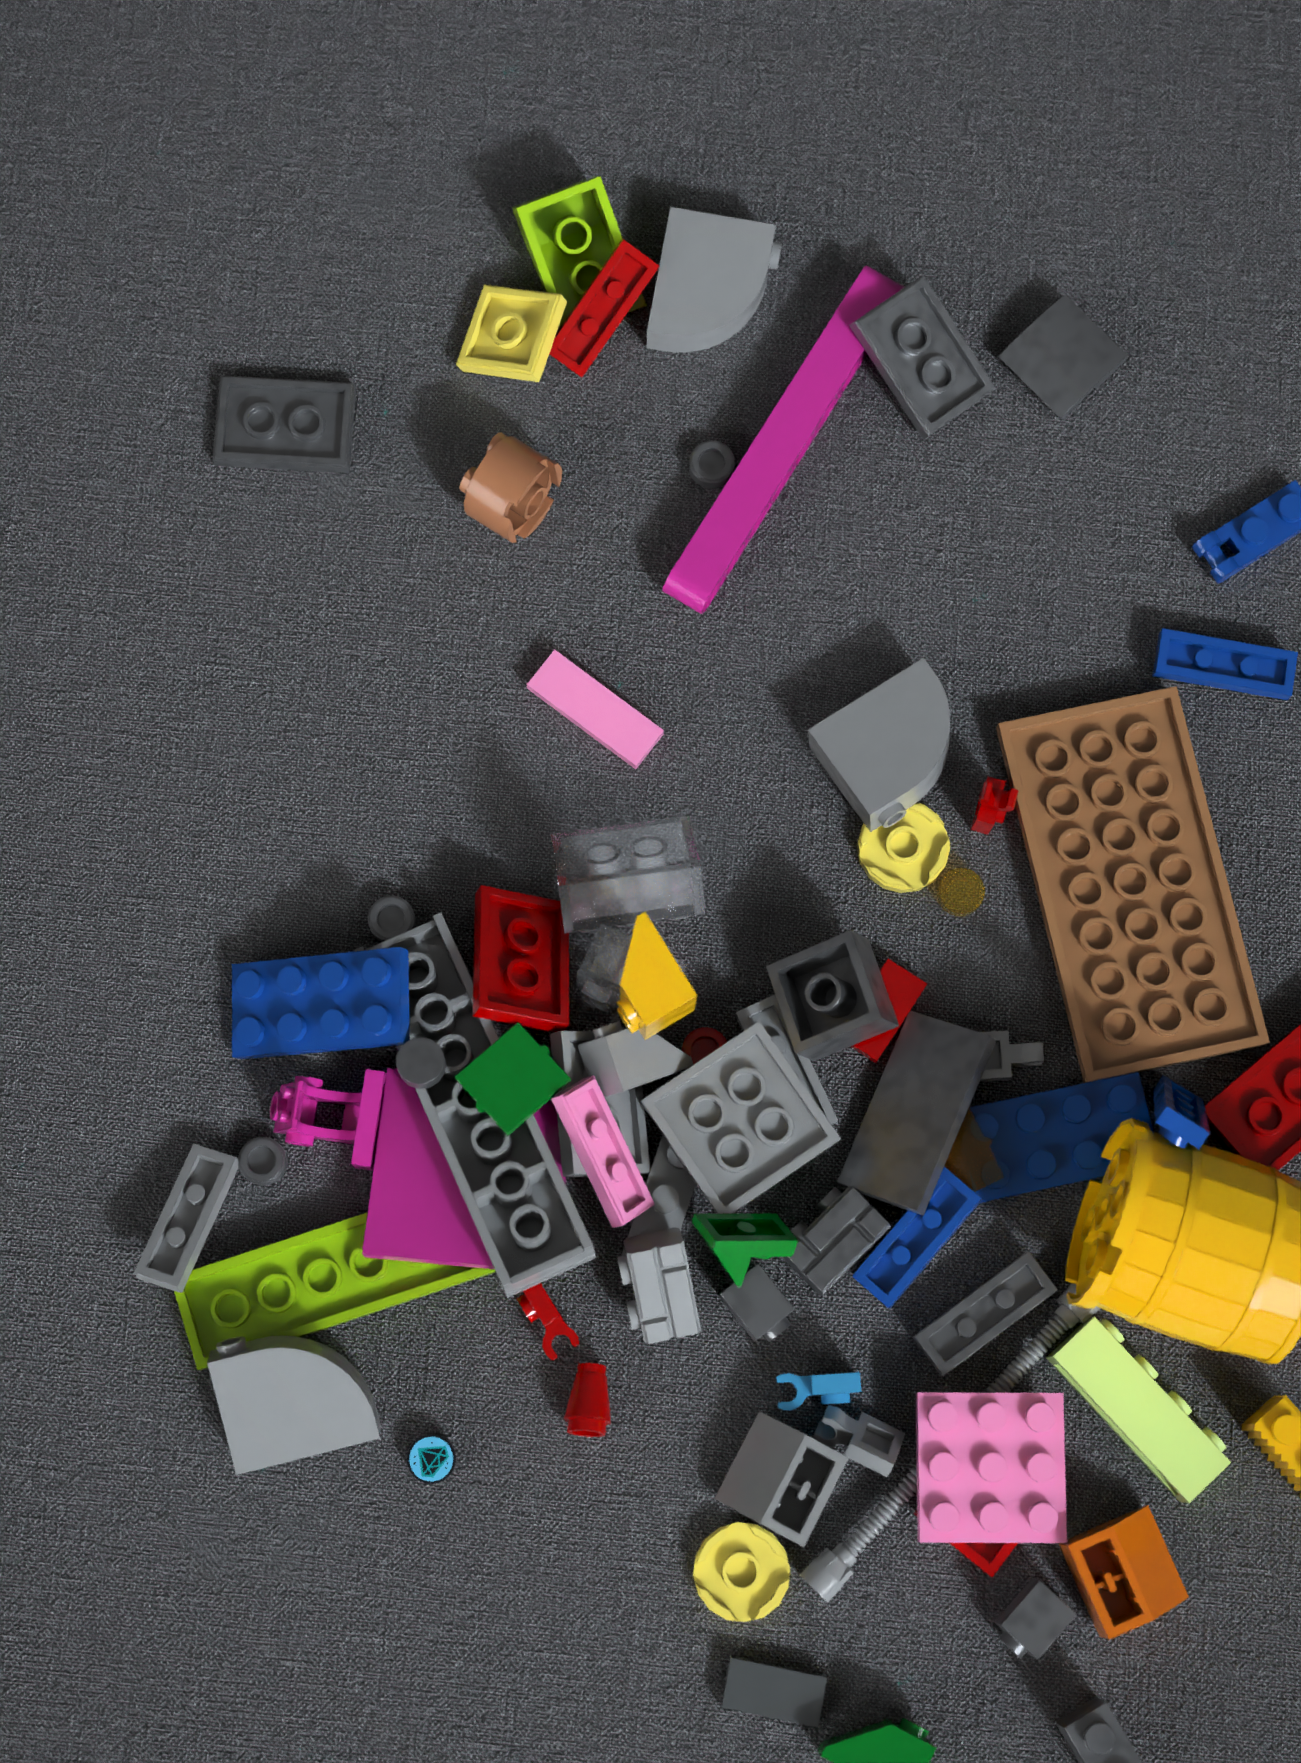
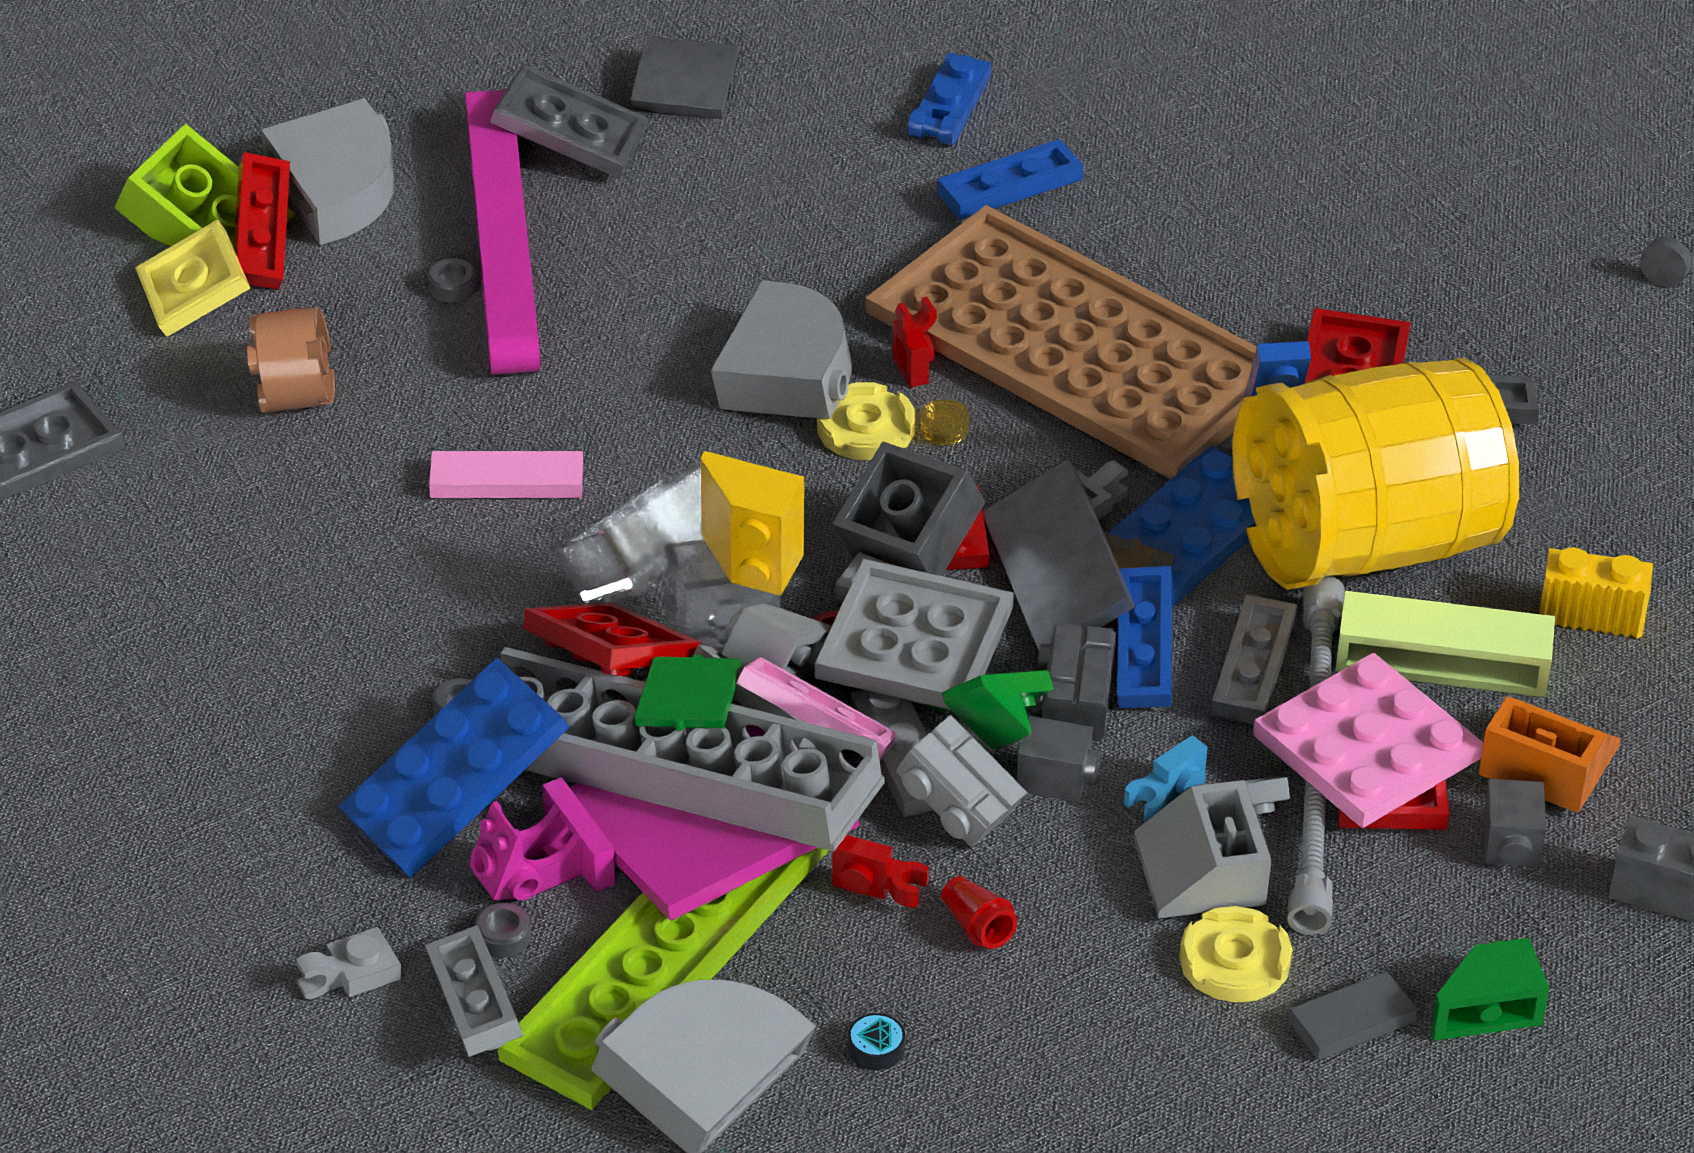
camera: 35 degrees left, 35 degrees down
(143, 1119) = (352, 962): none -> light grey plate
(421, 1063) = (594, 727): flat silver tile -> none

